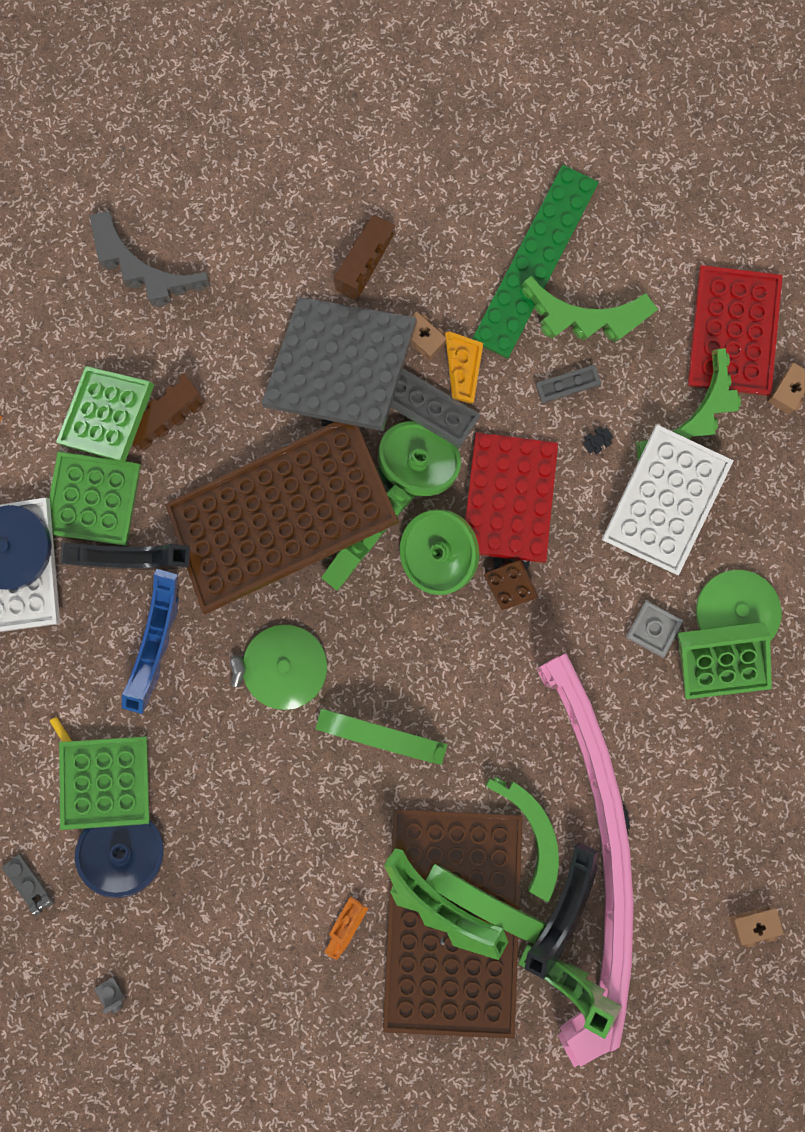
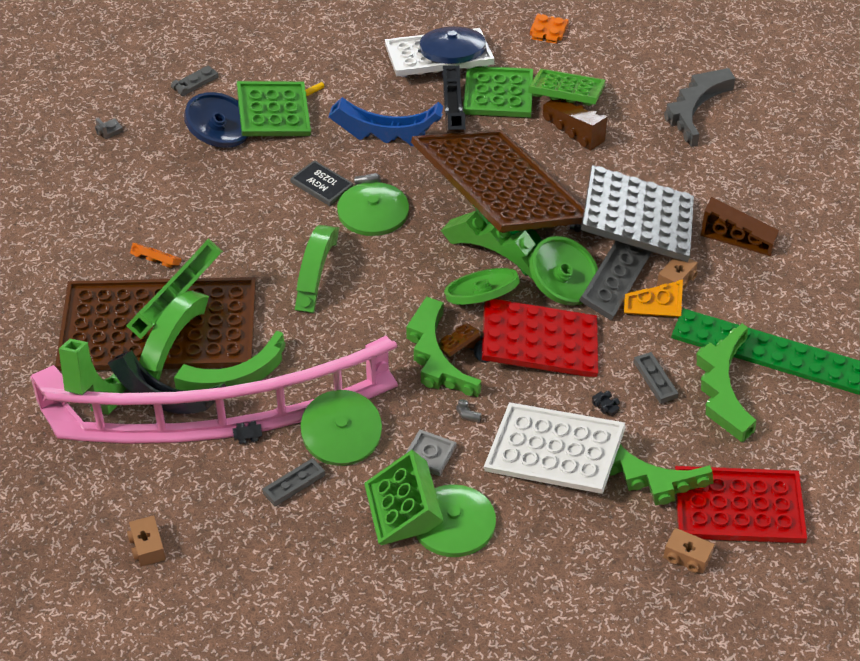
camera: 85 degrees right, 35 degrees down
(235, 726) = (321, 182): none -> black tile
(486, 622) = (427, 352): none -> bright green arch
(601, 587) = (465, 412): none -> flat silver arm
(627, 717) = (341, 427): none -> bright green dish
(686, 772) = (293, 482): none -> dark grey plate

